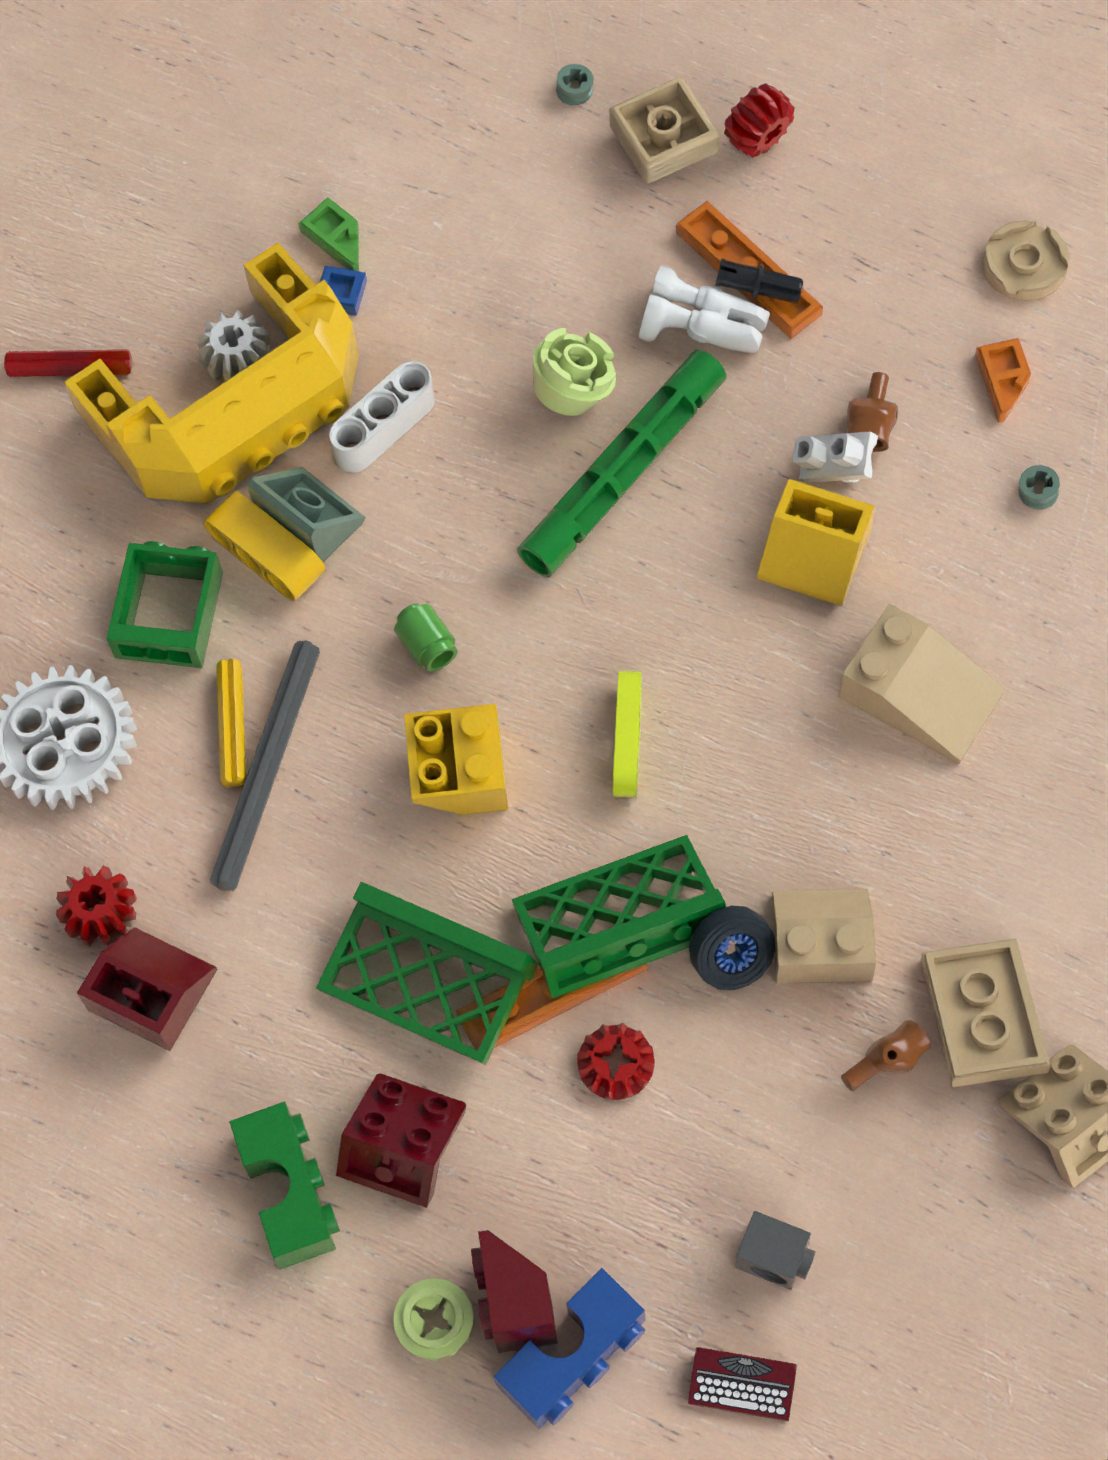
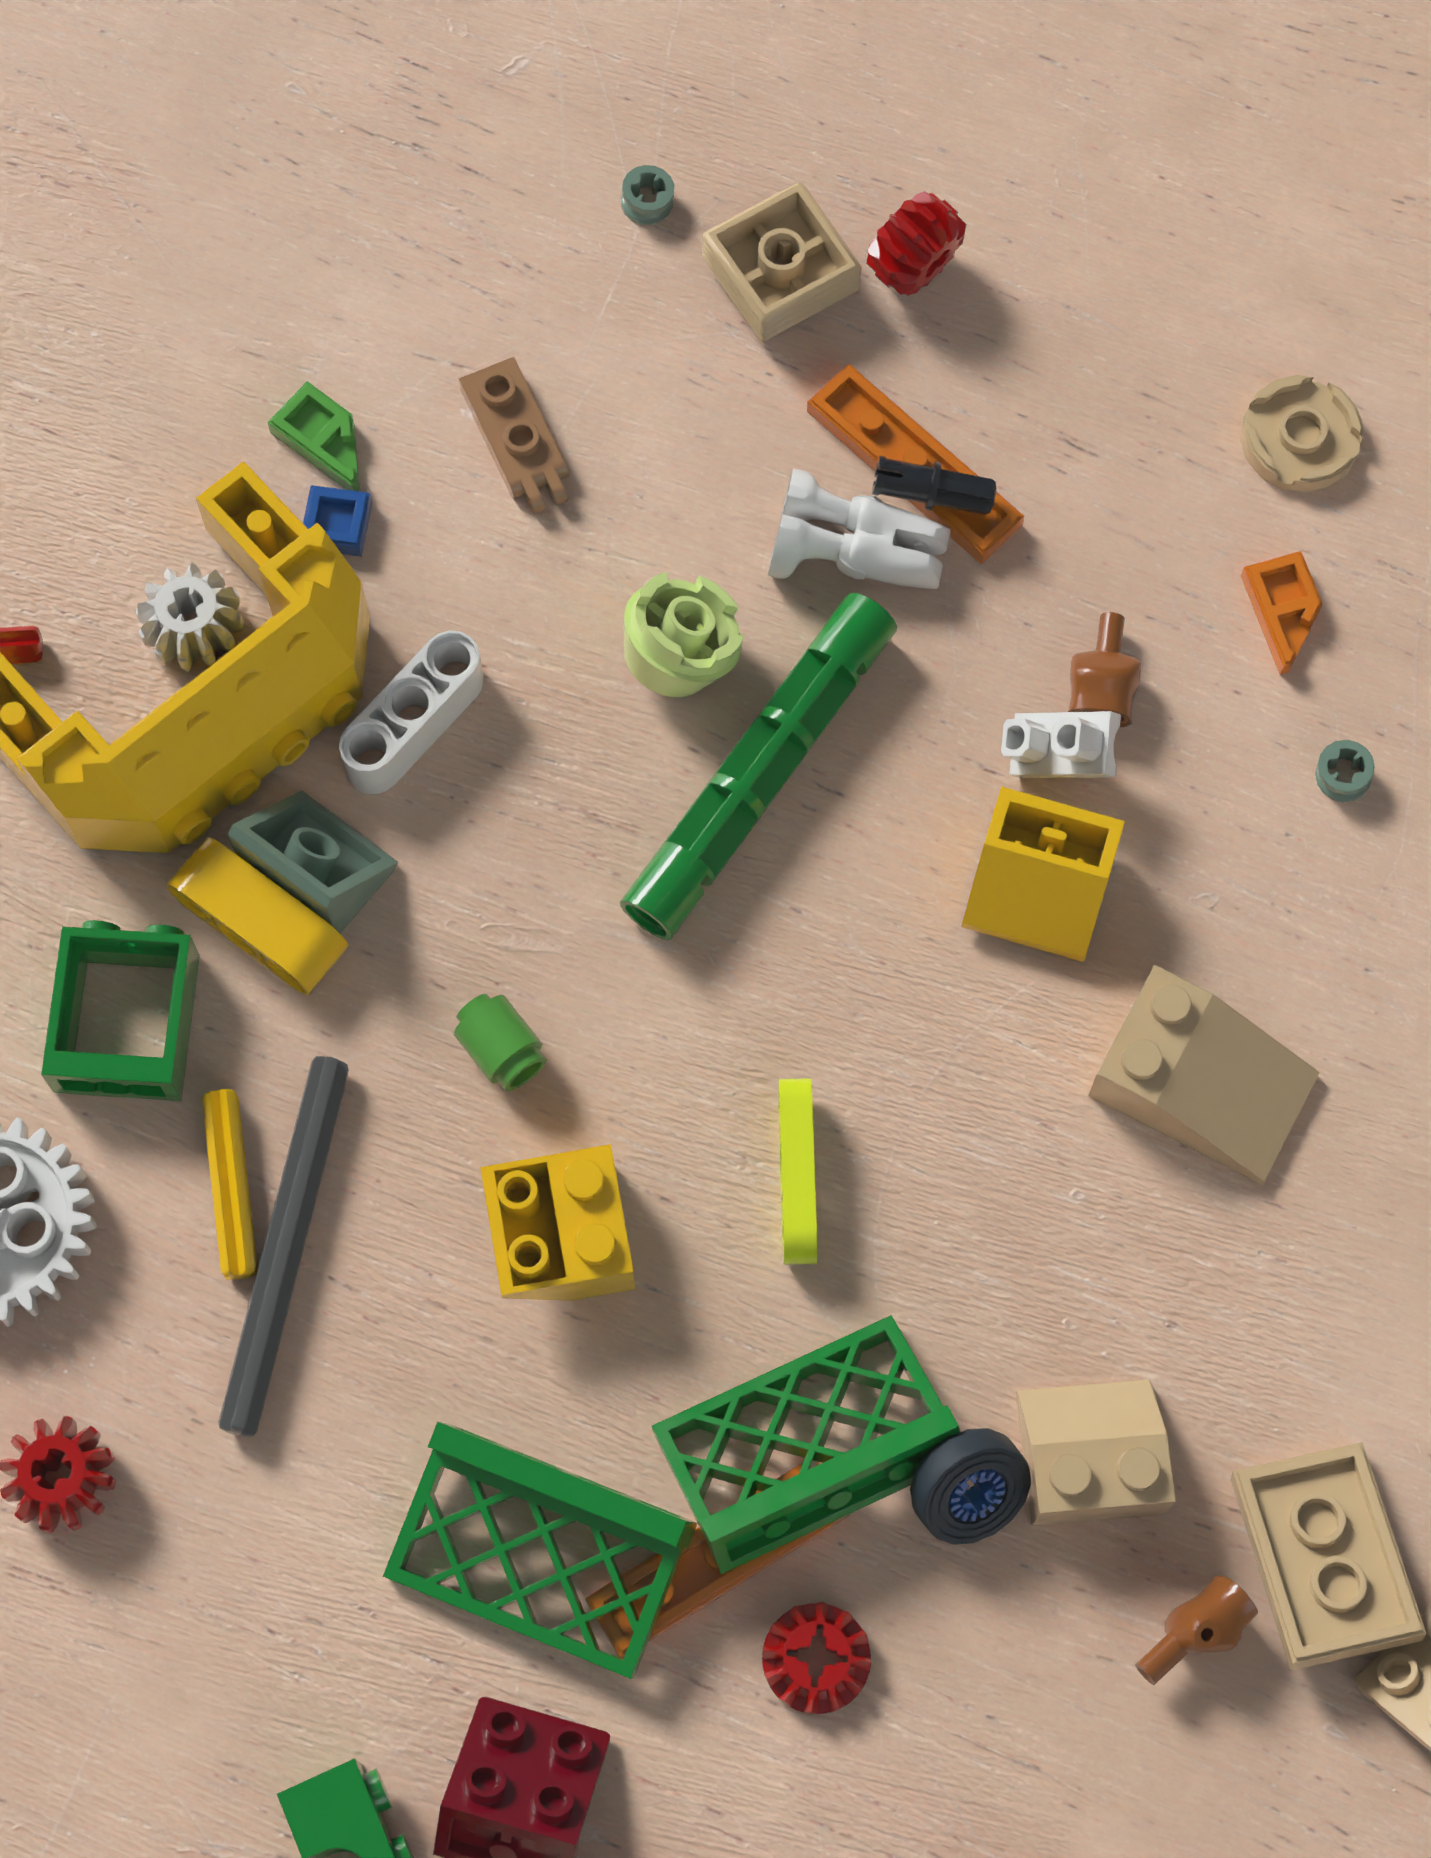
camera: 10 degrees left, 5 degrees up
(146, 986) = (141, 1591): dark red slope -> none
(470, 237) = (516, 433): none -> medium nougat hinge

